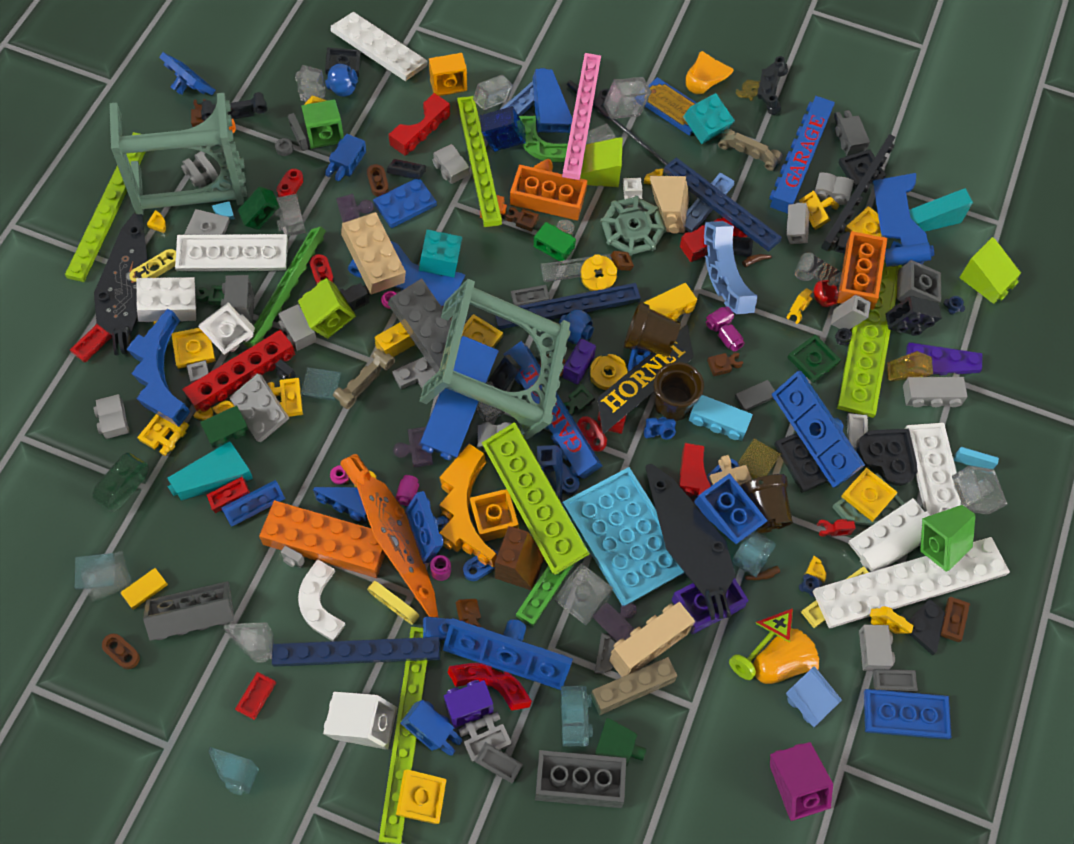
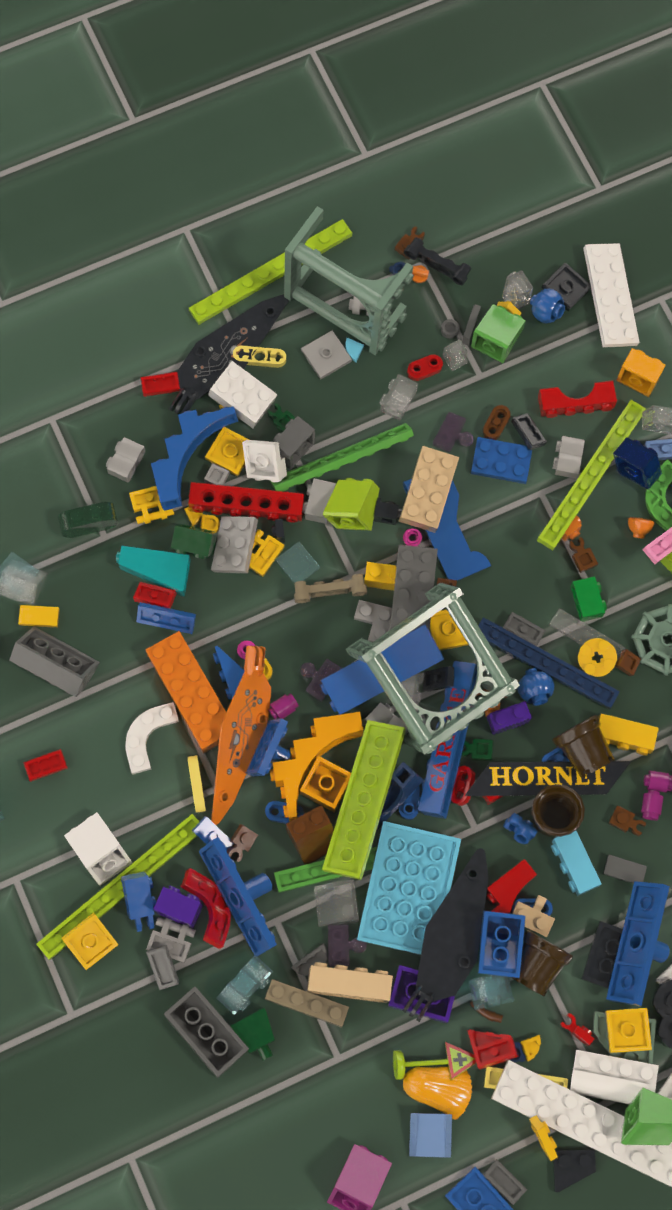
camera: 45 degrees right, 10 degrees up
(157, 222) = (294, 317): yellow tile -> none
(185, 76) = (425, 200): blue plate -> none
(232, 252) = (326, 393): white plate -> none
(253, 639) = (76, 725): clear slope -> none
(258, 208) = (377, 372): dark green brick -> none
(292, 557) = (156, 685): light grey plate -> none
(305, 158) = (455, 355): none -> clear brick
(322, 272) = (380, 468): red plate -> none
(346, 157) = (489, 380): blue hinge -> none
(356, 651) = (139, 797): dark blue plate -> none
(440, 253) = (484, 532): teal brick -> none
(440, 568) = (251, 783): magenta brick -> none
(548, 192) = (623, 551): orange brick -> none
(566, 226) = (610, 593): clear plate -> none
(603, 363) = (531, 738): yellow plate -> none
(759, 459) = (573, 922): clear yellow piece -> none
(793, 593) = (491, 1048): none -> red wing
(876, 647) = (514, 1146): light grey brick -> none
(955, 619) = (598, 1183): reddish brown plate -> none

